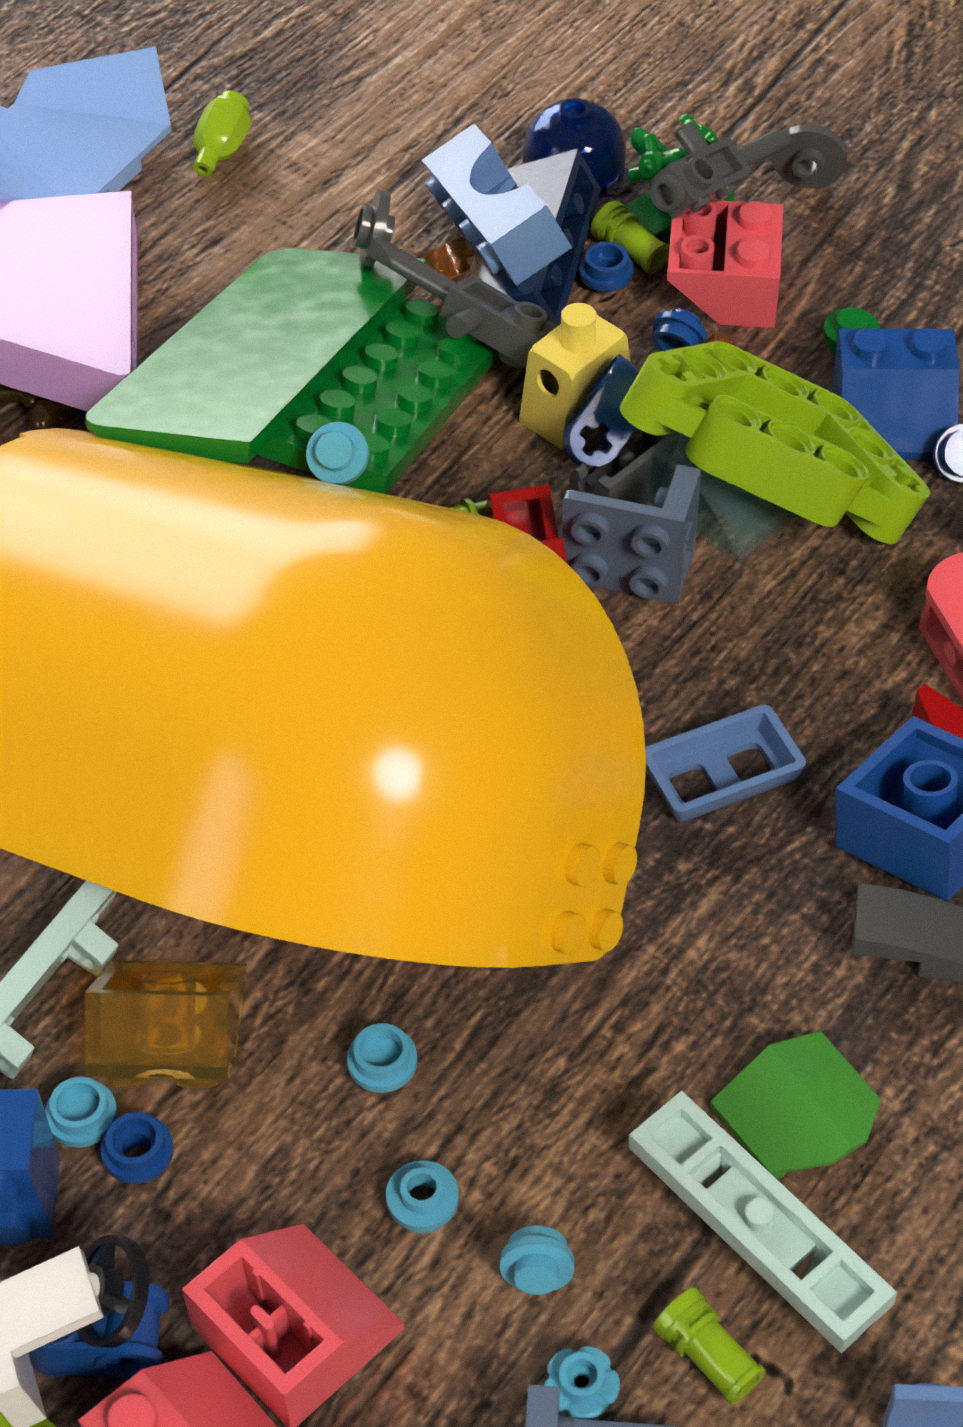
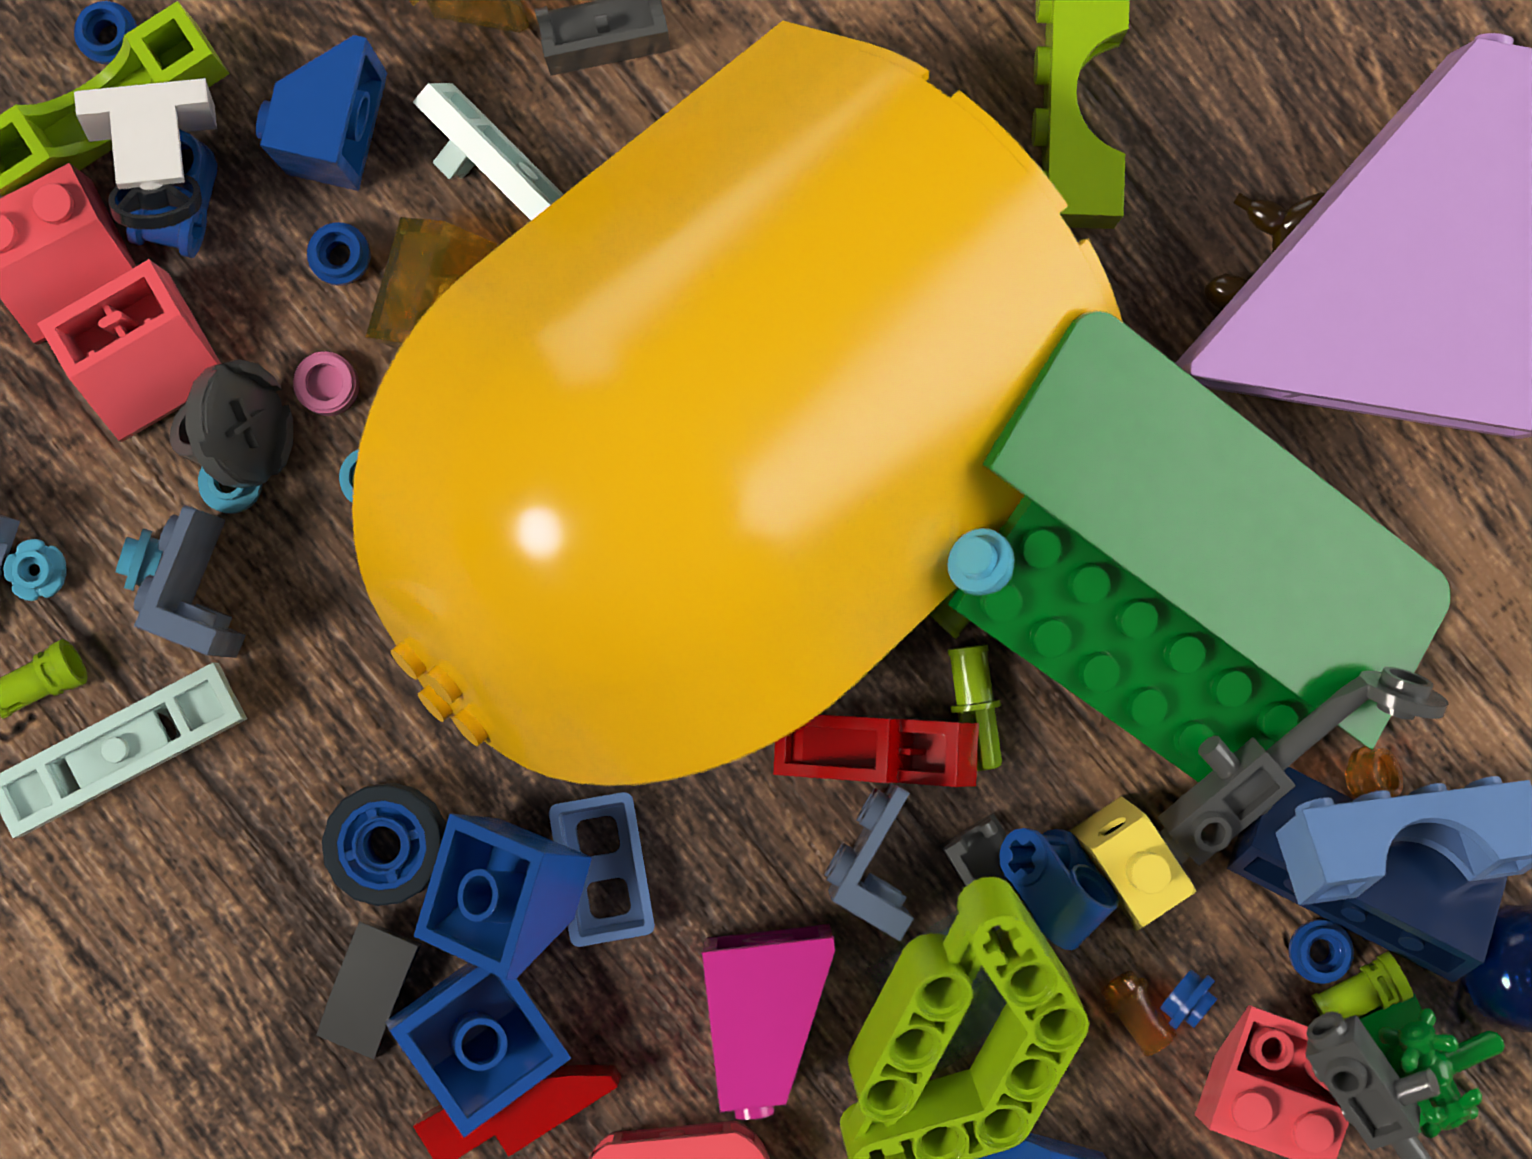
camera: 100 degrees right, 35 degrees up
(80, 1112) = (380, 209): medium azure plate -> none
(287, 1131) = (326, 383): none -> bright pink tile
(357, 1184) = (235, 424): none -> dark grey tile
(544, 1185) = (167, 597): none -> sand blue bracket
(760, 976) = (349, 847): none -> wheel
(781, 808) = (499, 894): none -> blue slope
(798, 1106) = (231, 827): bright green slope -> none
(806, 588) = (762, 1010): none -> dark pink slope

